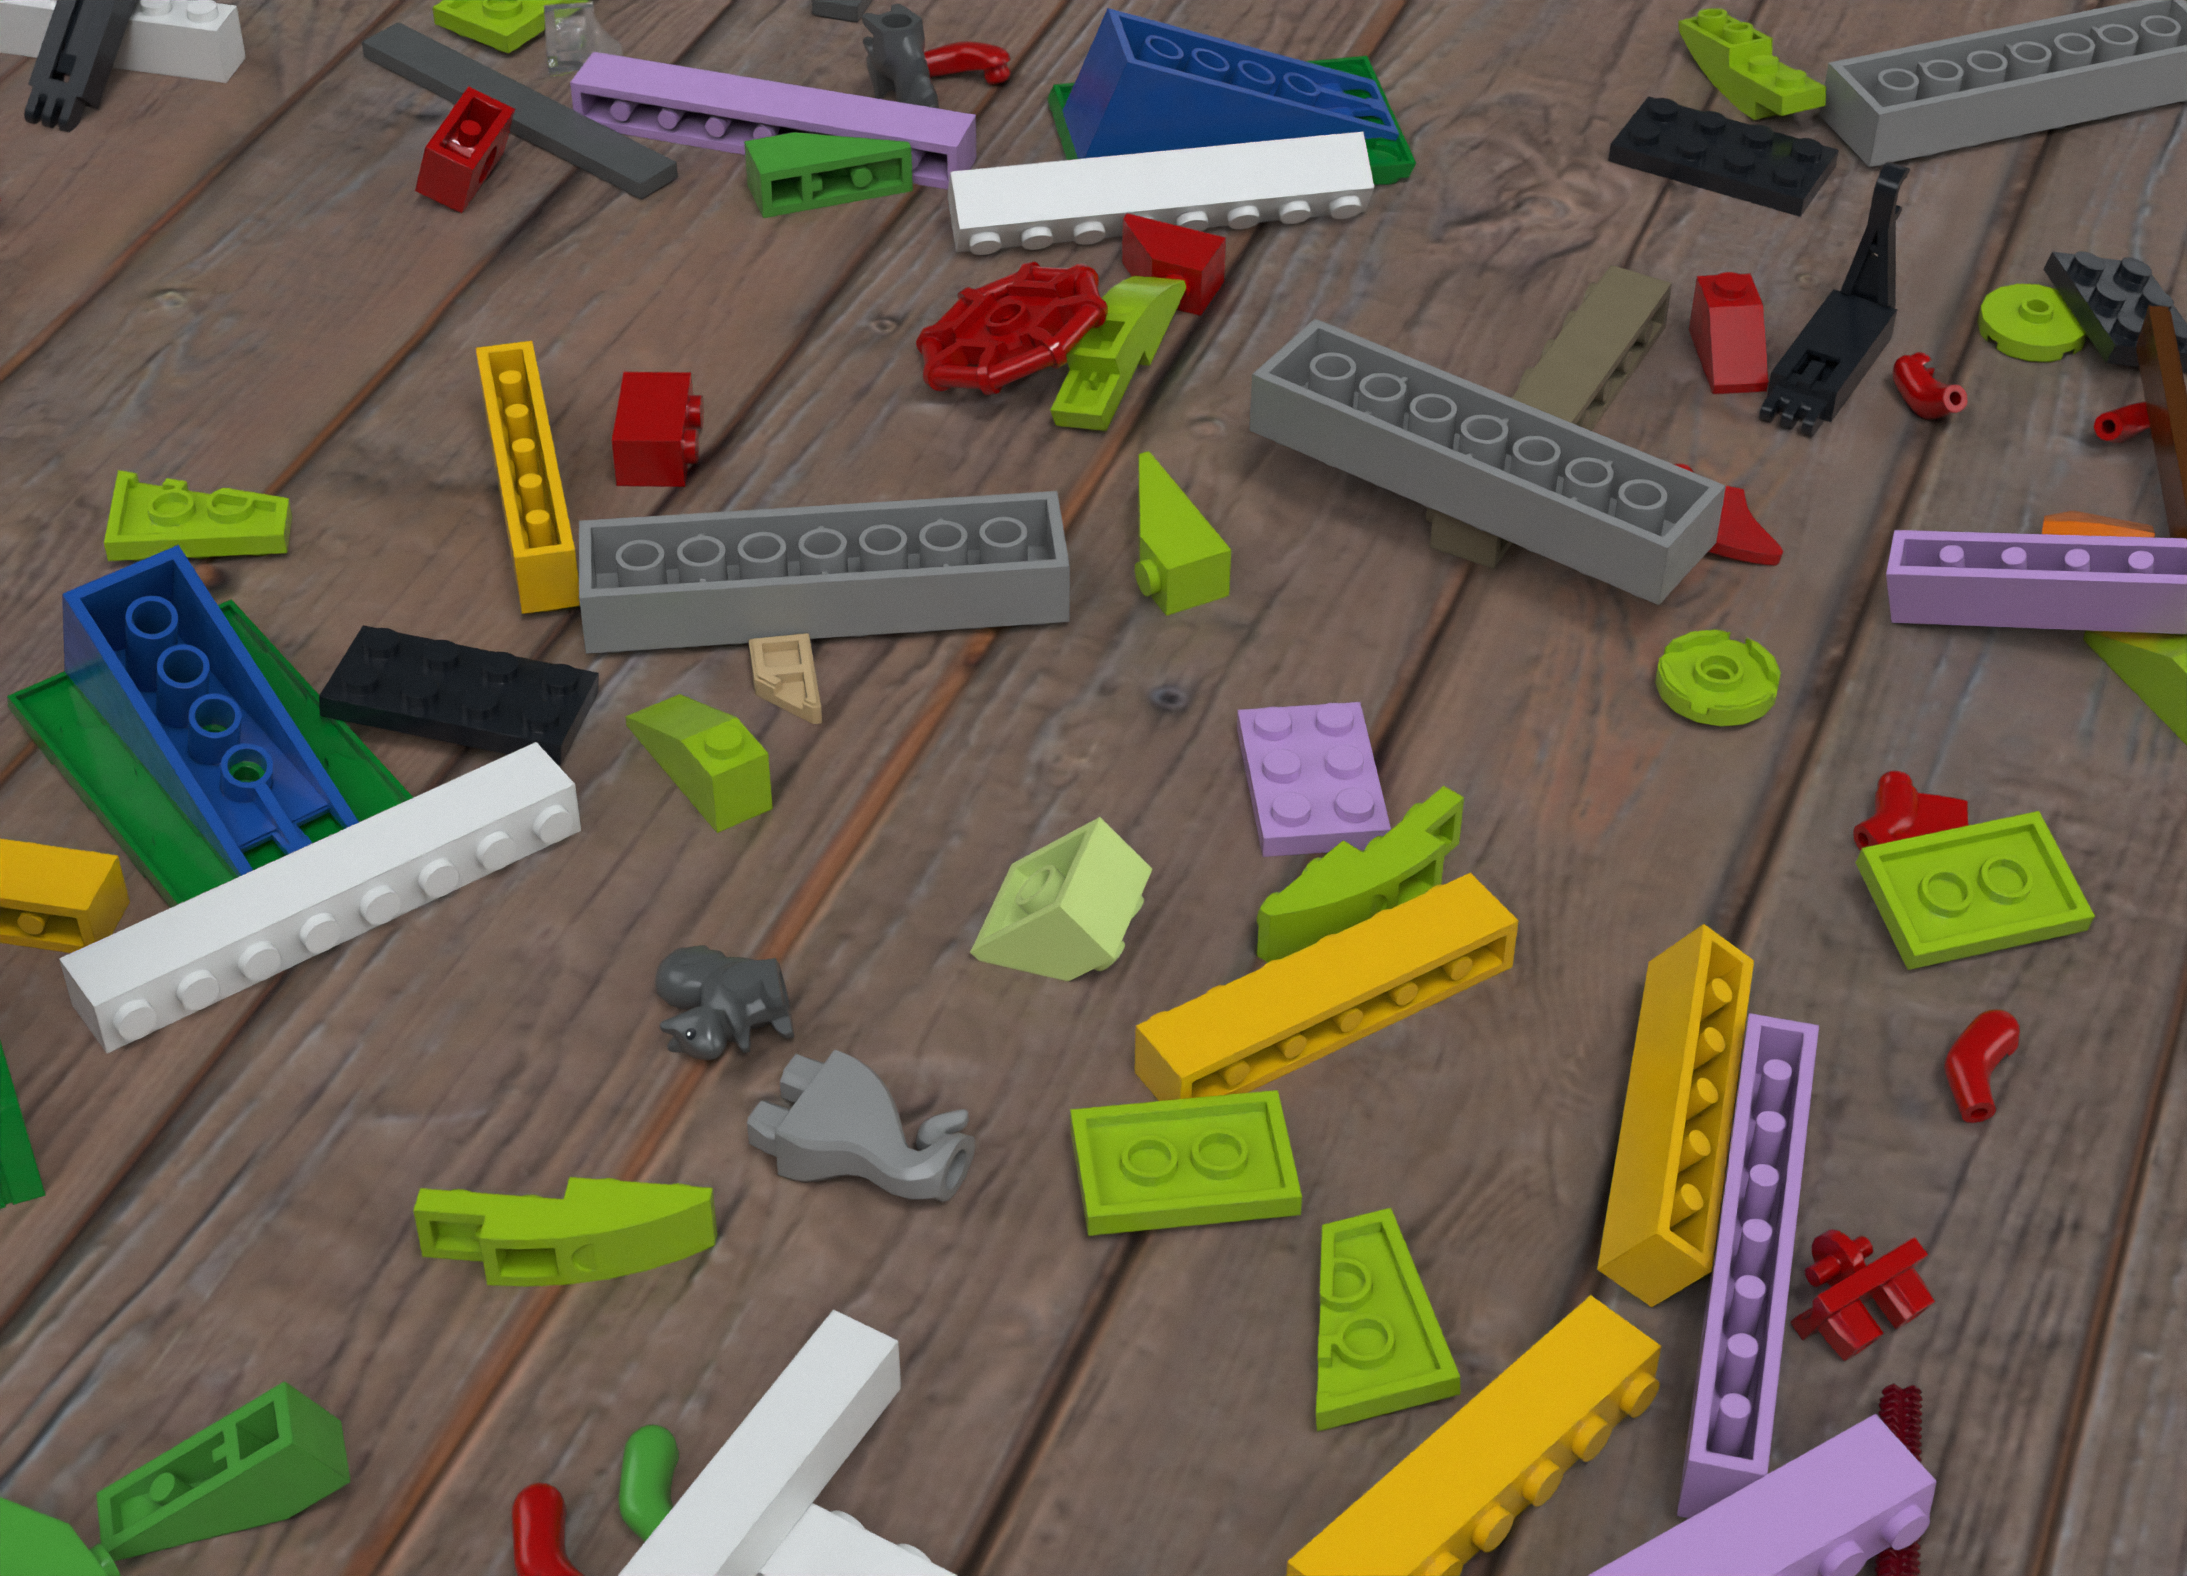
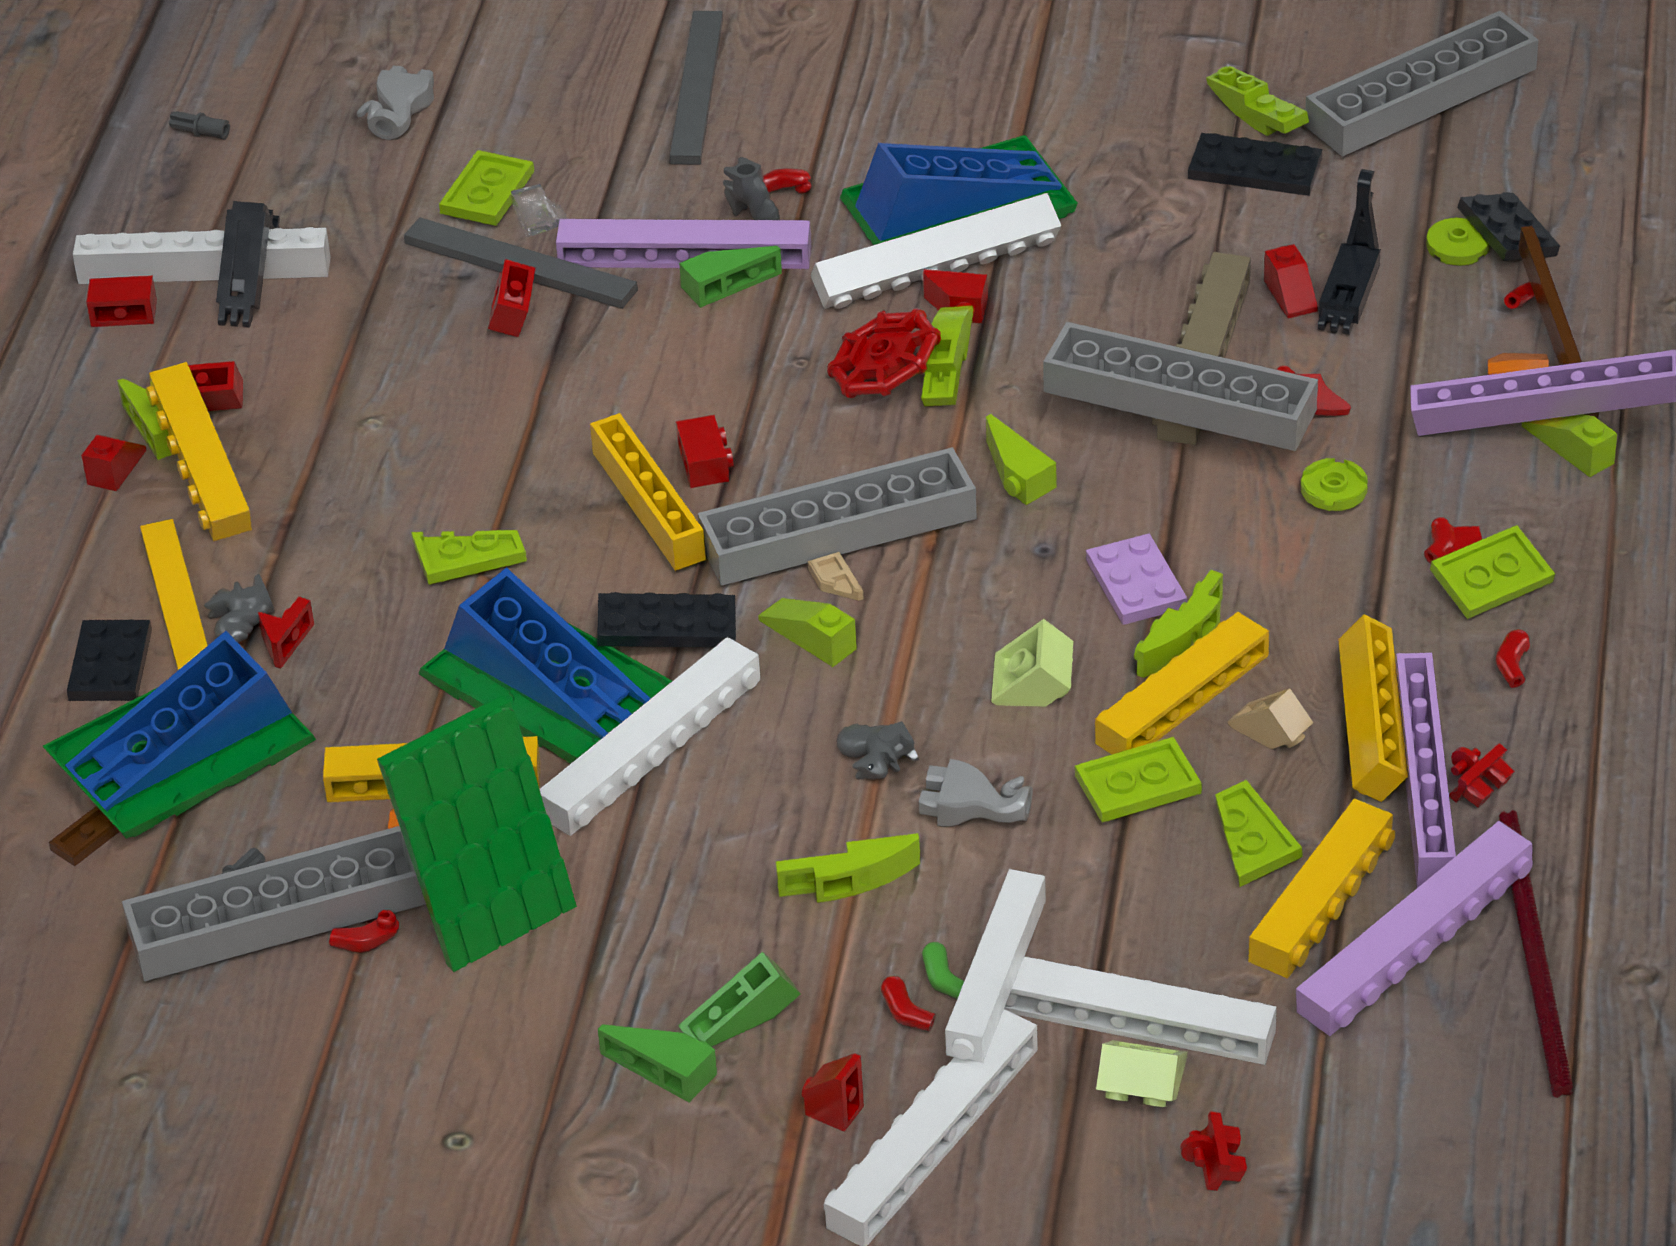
camera: 10 degrees left, 0 degrees up
(1481, 1096) = (1273, 720): none -> tan slope
(1924, 393) = (1406, 297): red arm -> none

